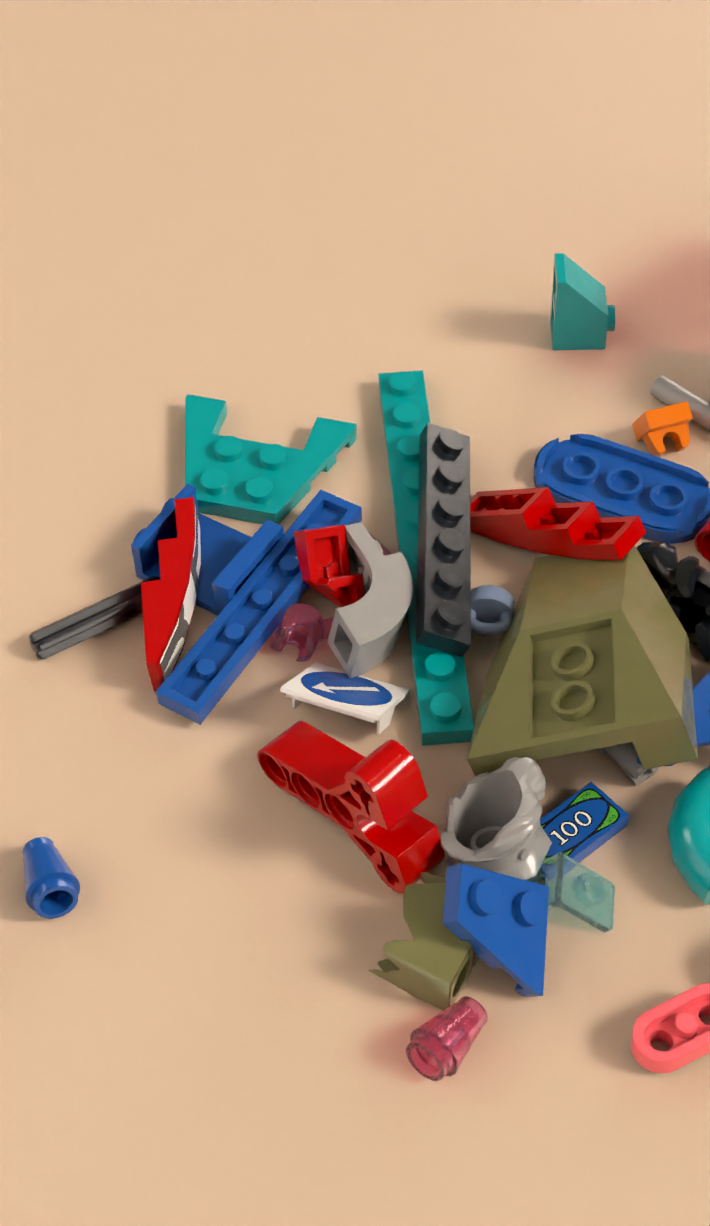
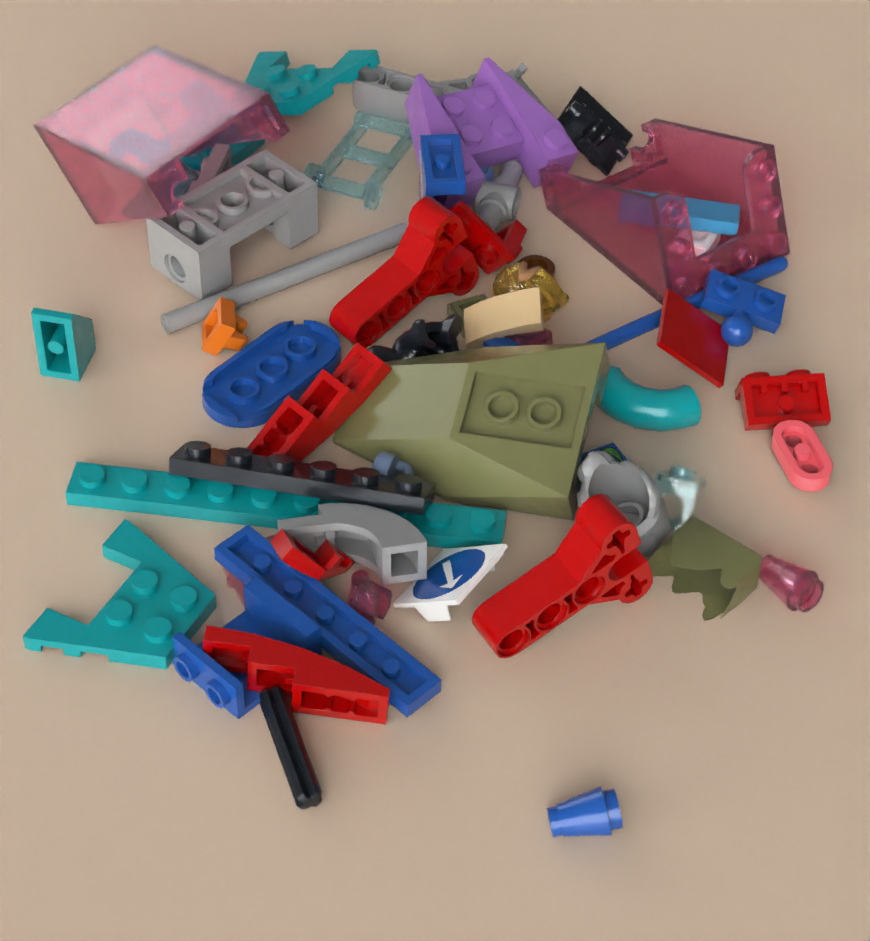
camera: 80 degrees left, 5 degrees down
(501, 921) = (709, 512): blue wing -> none

